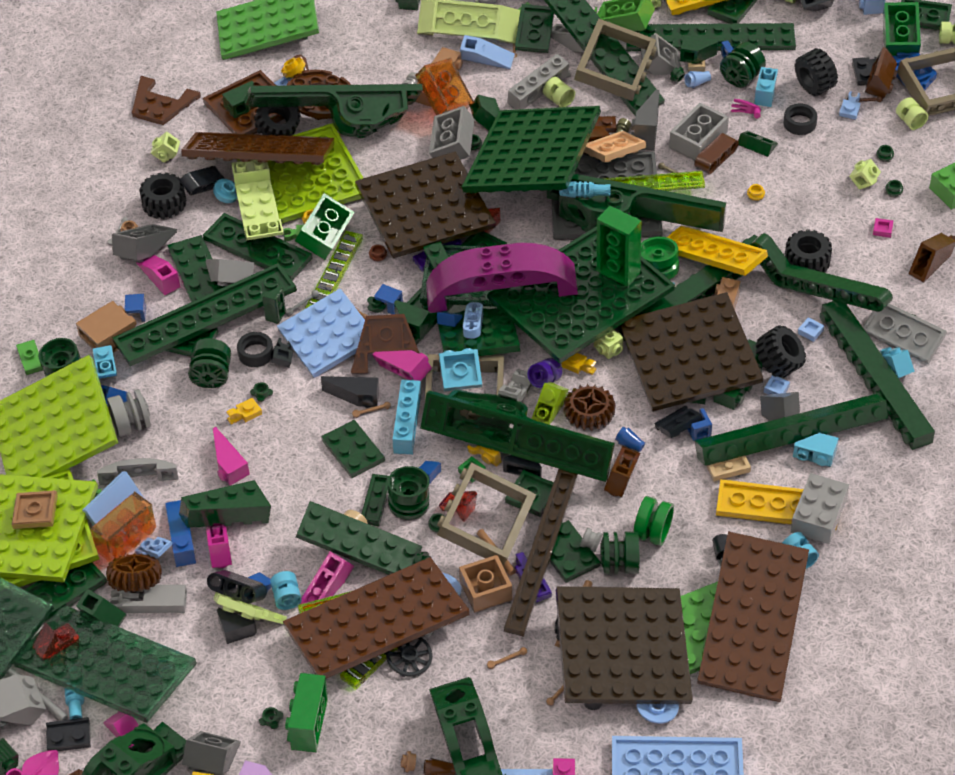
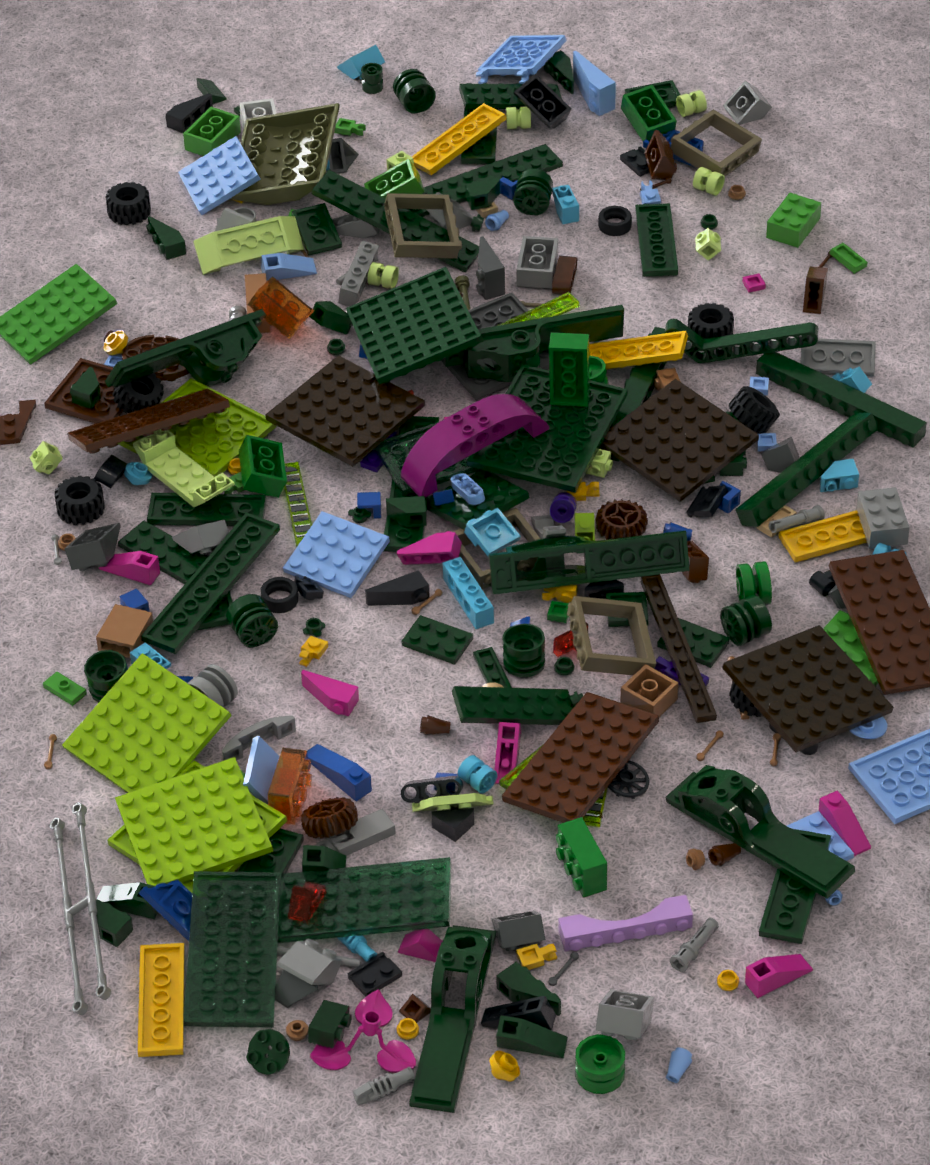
camera: 30 degrees left, 5 degrees down
(34, 509) = (200, 801): medium nougat plate -> none
(154, 548) = (334, 788): light blue slope -> none
(218, 546) = (383, 763): dark pink slope -> none
(225, 505) = (370, 728): dark green wedge -> none
(271, 712) = (543, 875): dark green plate -> none
(274, 305) = (270, 550): dark green slope -> none
(285, 526) = (432, 725): none -> reddish brown cone
(289, 311) = (282, 552): light grey hinge -> none
(377, 252) = (325, 471): copper plate -> none
(382, 334) = (395, 532): reddish brown wing -> none
(435, 253) = (392, 450): dark green hinge -> none
(452, 133) = (316, 343): light grey brick -> none
(585, 190) = (495, 338): medium azure hinge -> none
(591, 539) = (712, 621): light grey wheel -> none
(614, 146) = (480, 298): light nougat plate -> none
(746, 107) = (561, 229): dark pink piece -> none
(751, 475) = (803, 517): none -> light grey pin
(756, 143) = (591, 255): dark green slope -> none
(756, 192) = (623, 294): yellow plate -> none
(816, 72) = (603, 174): black tyre -> none
(823, 151) = (656, 240): none -> dark green plate
(894, 188) = (739, 247): dark green plate -> none
(932, 134) = (736, 192): none -> medium nougat plate

